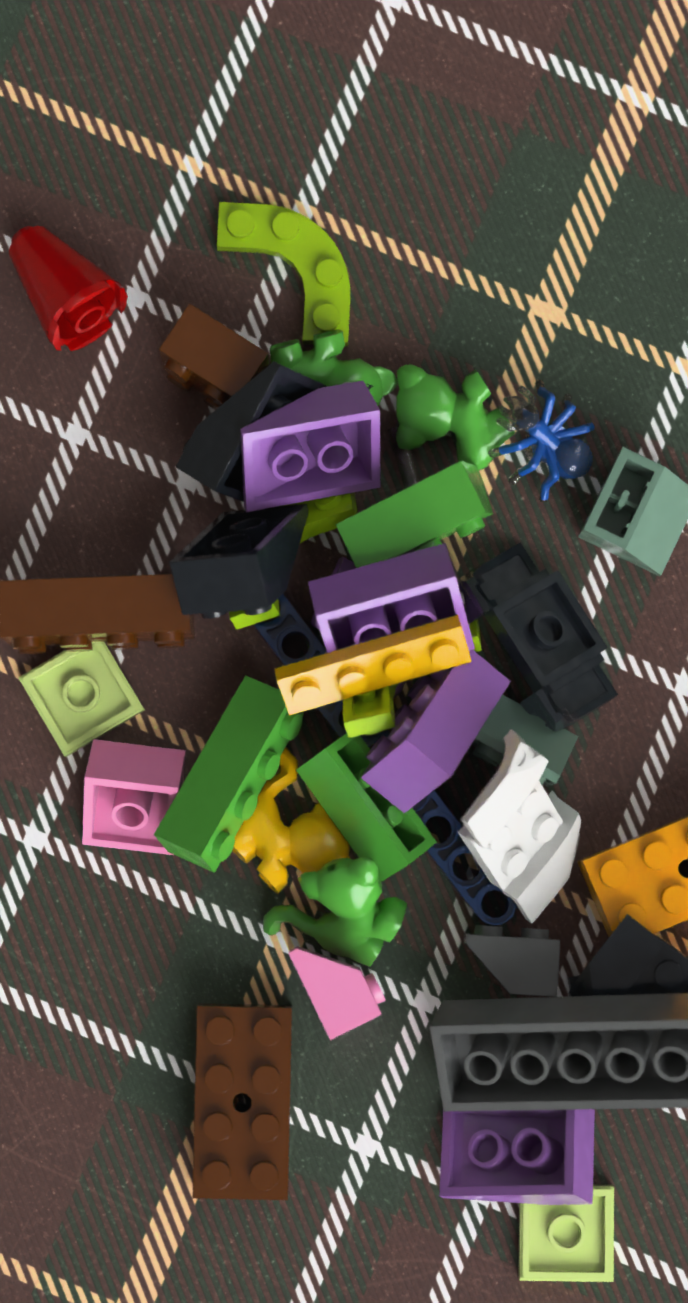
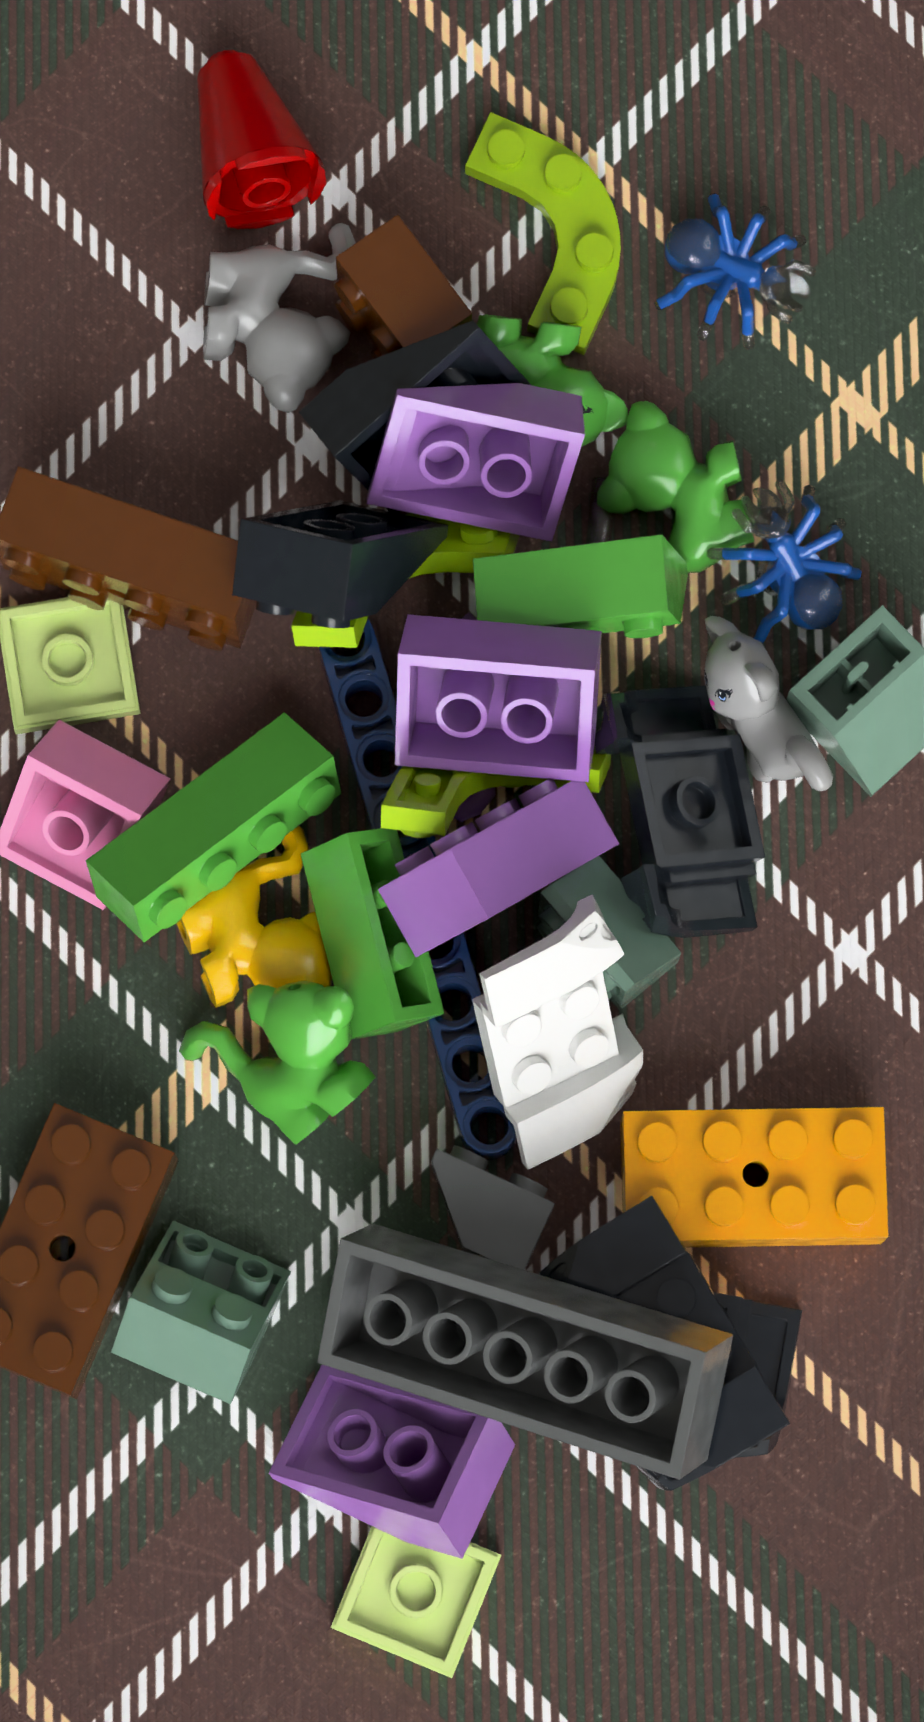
camera: 25 degrees right, 5 degrees down
(145, 419) = (283, 345): none -> light grey animal
(337, 991) = (241, 1155): bright pink slope -> none
(350, 1104) = (200, 1311): none -> sand green slope
(373, 665) = (449, 750): yellow plate -> none
(420, 248) = (724, 268): none -> animal
(555, 543) = (747, 699): none -> light grey animal

